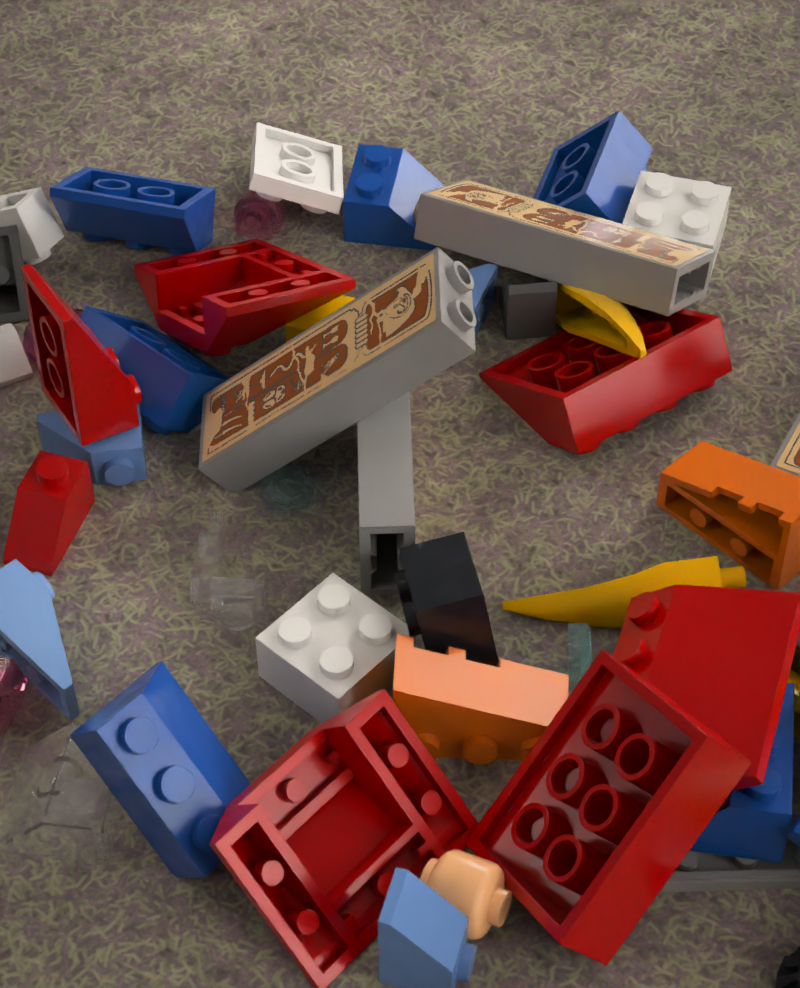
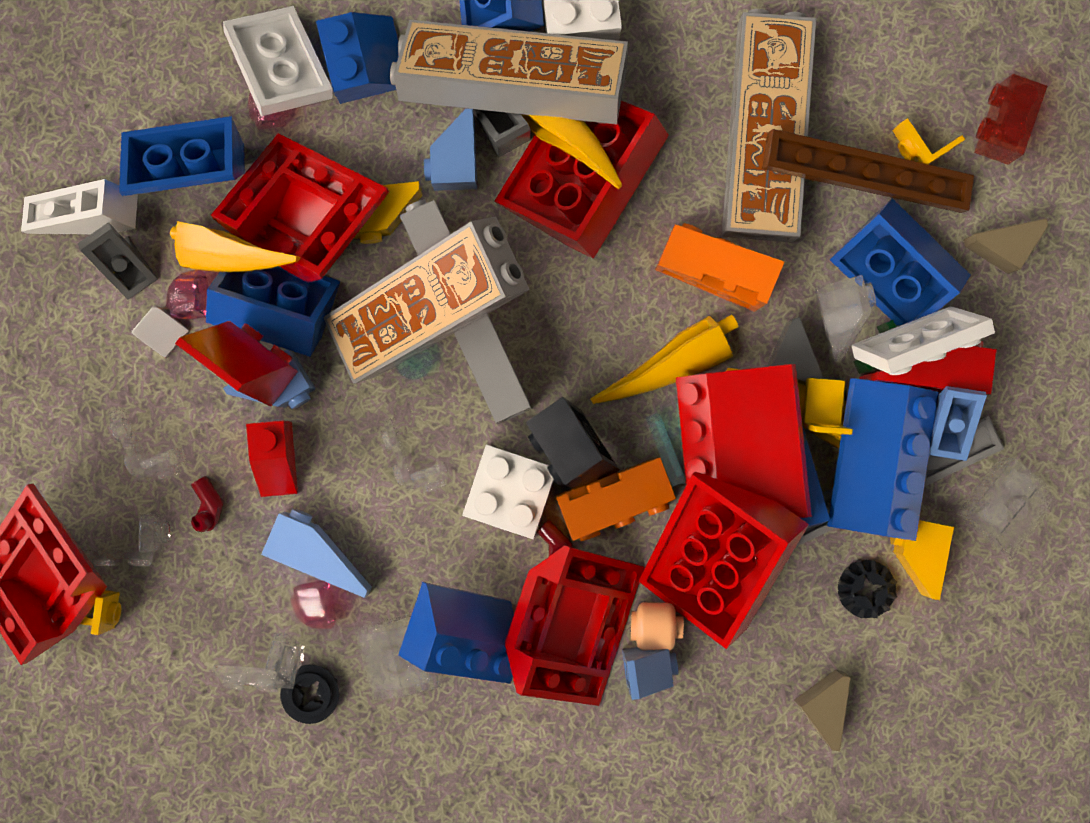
camera: 30 degrees left, 40 degrees up
(130, 289) = (221, 251): none -> yellow piece

